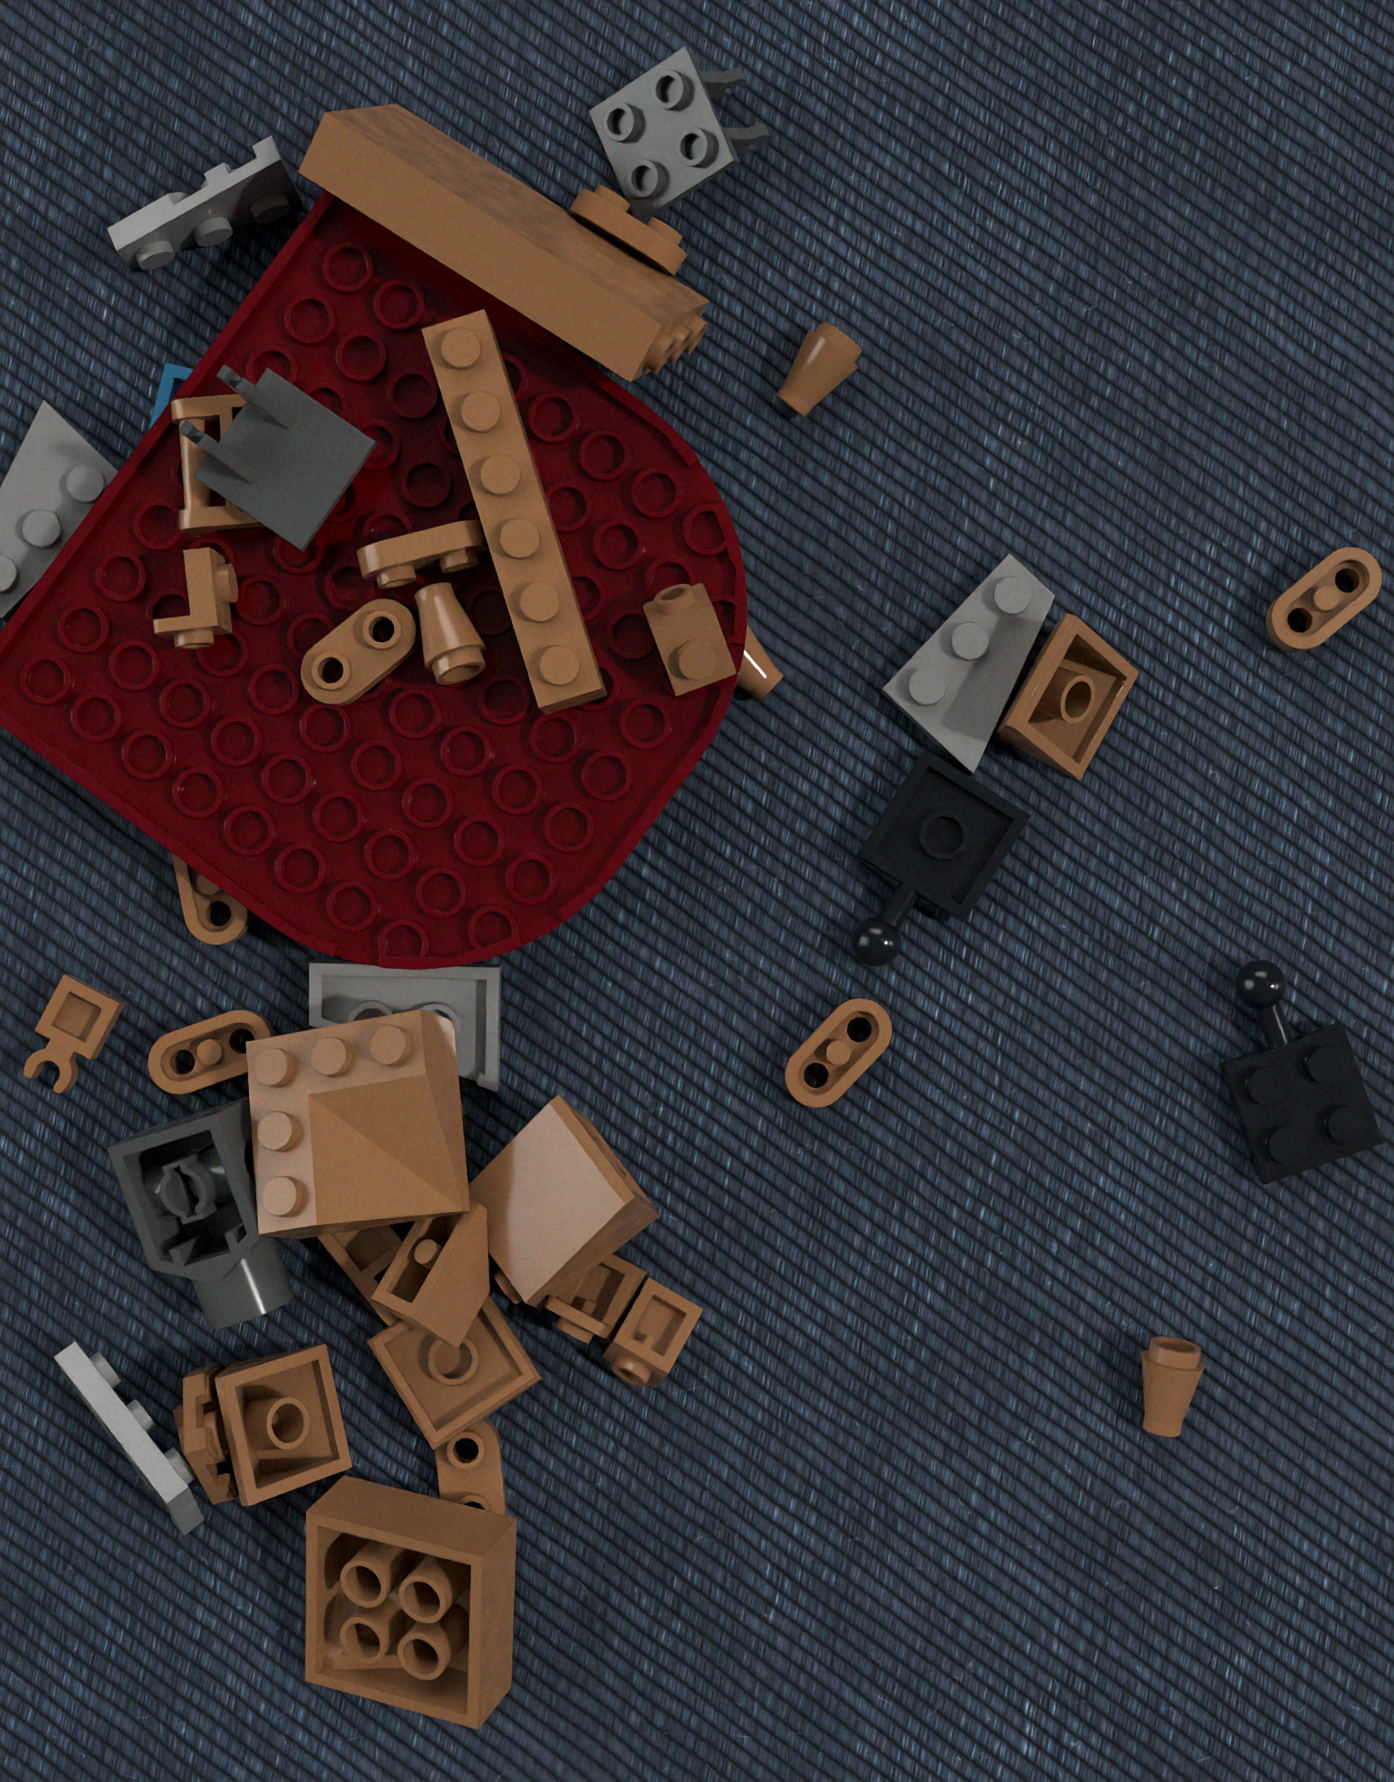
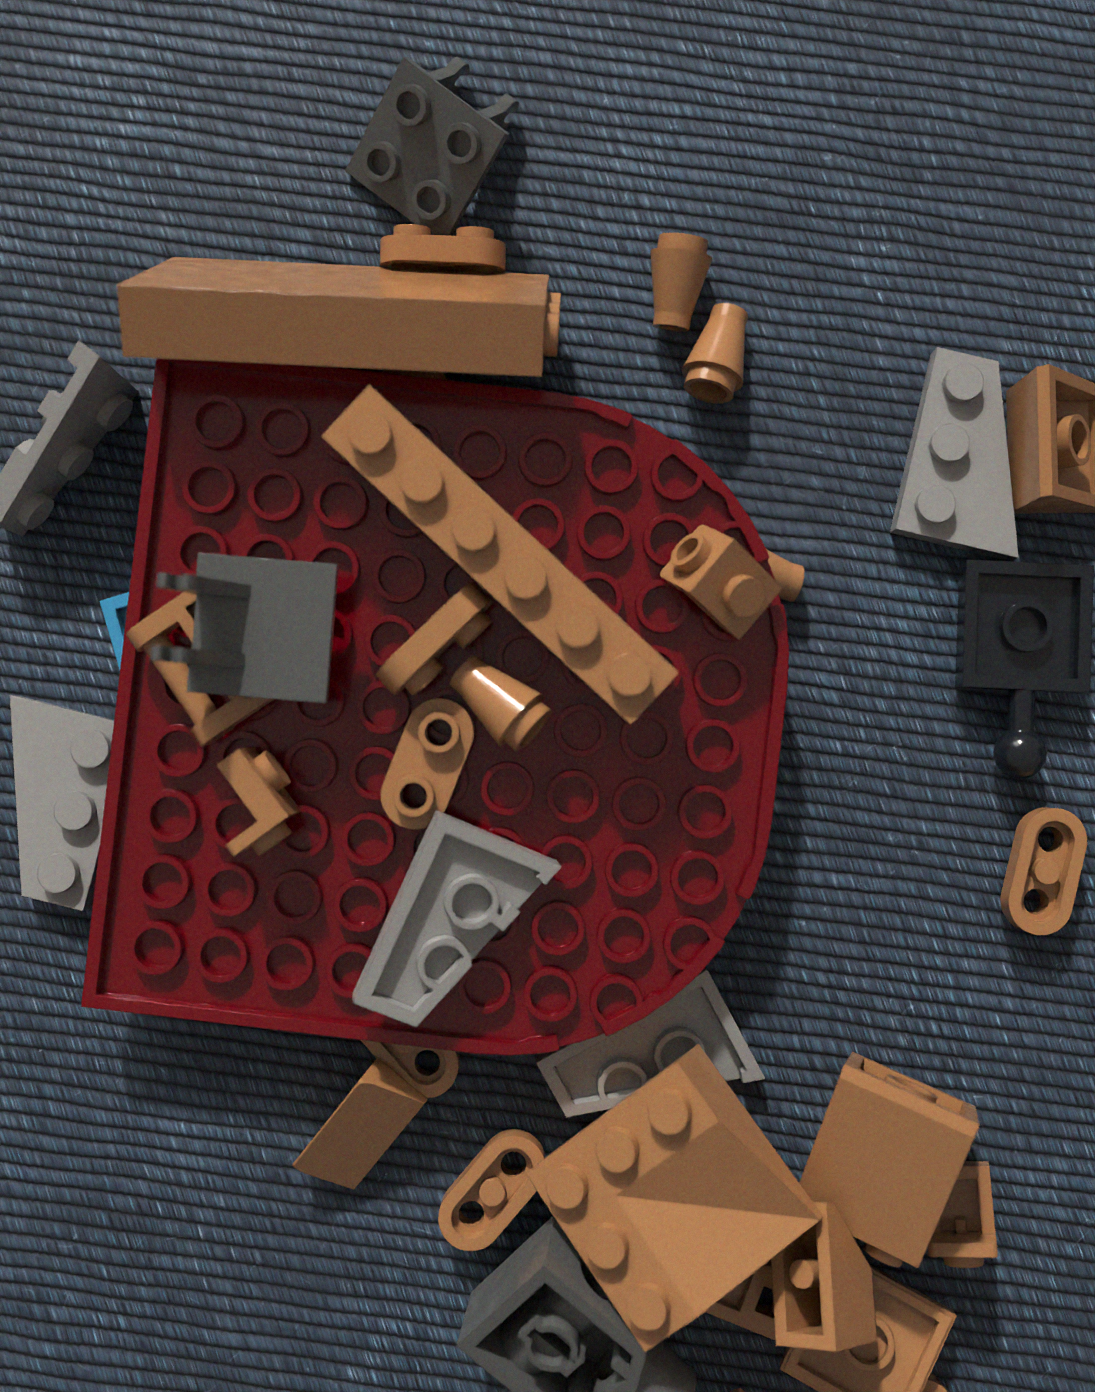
camera: 30 degrees left, 0 degrees up
(76, 1023) = (357, 1236): medium nougat plate -> none
(130, 933) = (361, 1127): none -> medium nougat slope
(306, 782) = (445, 912): none -> light grey wing
(651, 1335) = (1029, 1215): medium nougat bracket -> none
(812, 455) = (717, 358): none -> medium nougat cone

